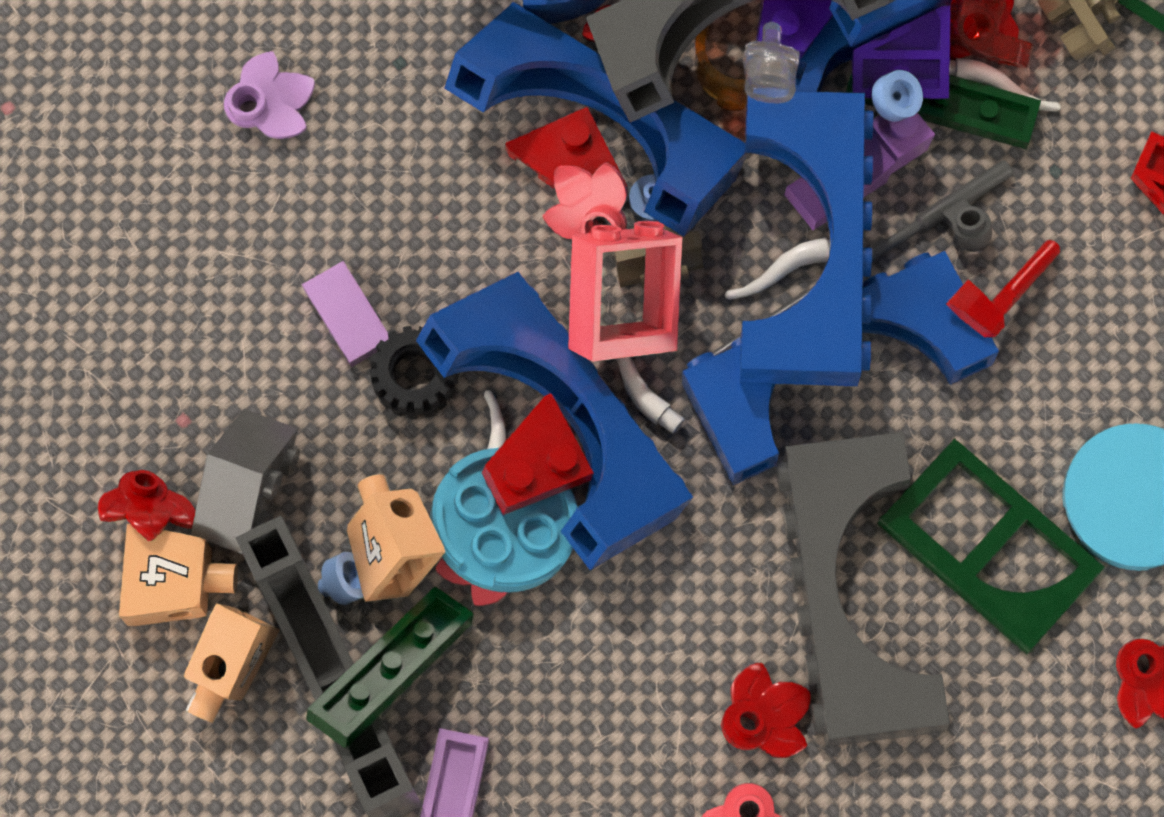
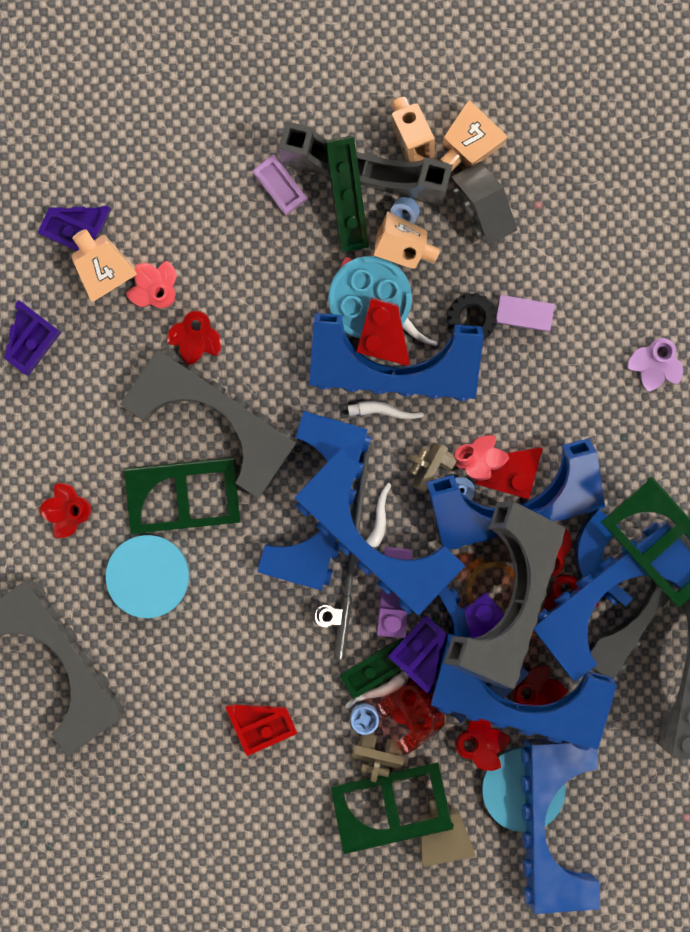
camera: 125 degrees right, 15 degrees up
(145, 504) = (508, 151): red plate -> none
(661, 293) = (397, 430): coral window -> none
(770, 67) = (466, 584): clear piece -> none
(897, 95) = (406, 631): light blue tile -> none
(988, 316) = (277, 580): red piece -> none
(1055, 58) = (367, 722): none -> light blue wheel

